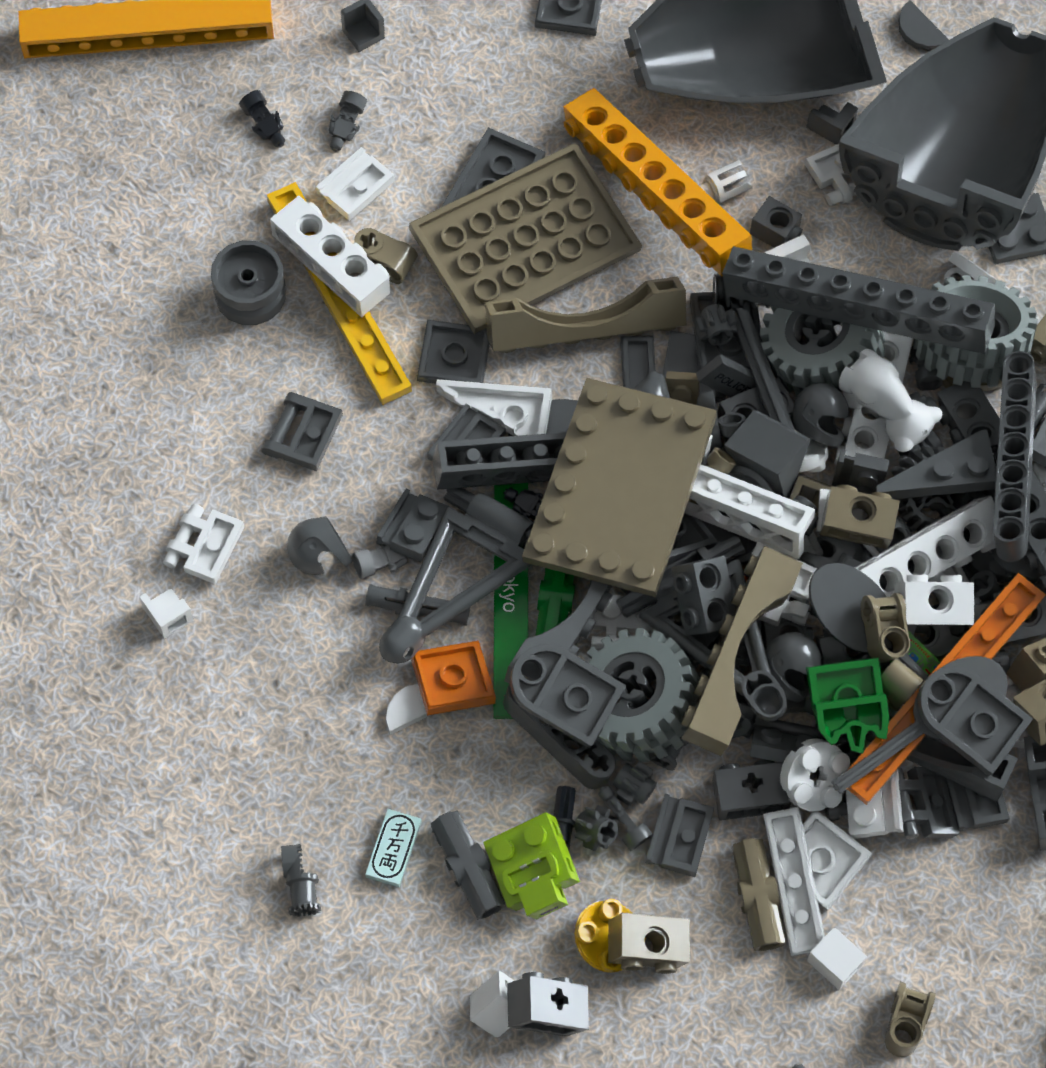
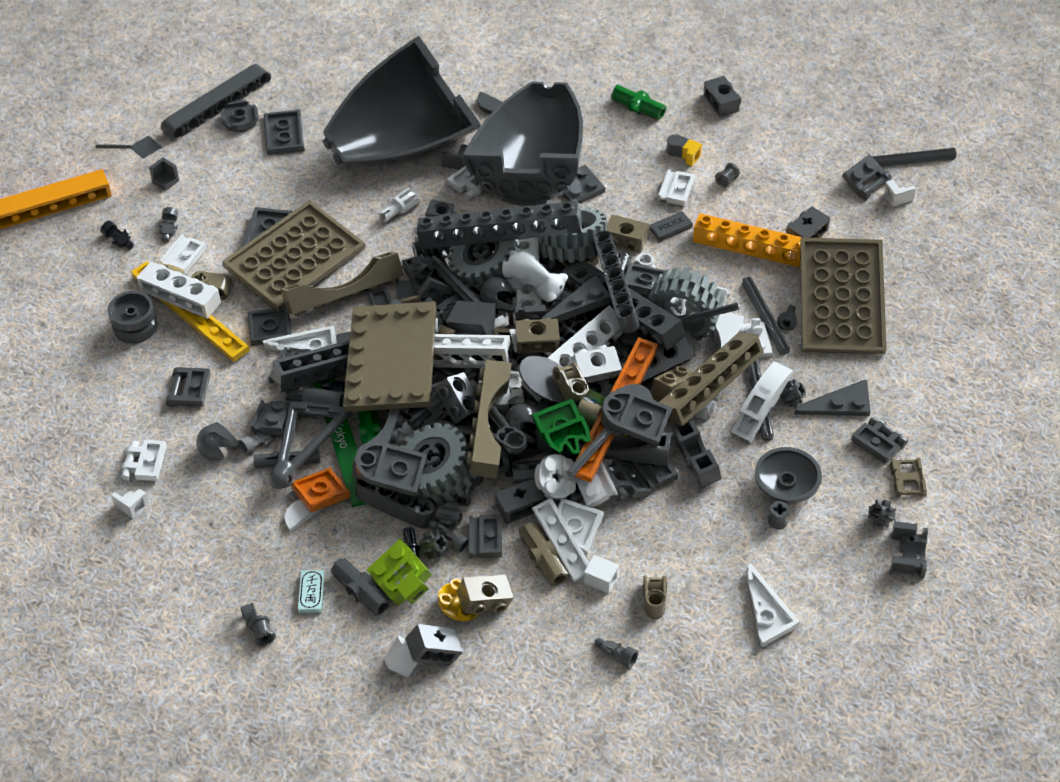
camera: 15 degrees left, 15 degrees down
(655, 179) = (361, 204): light orange brick -> none

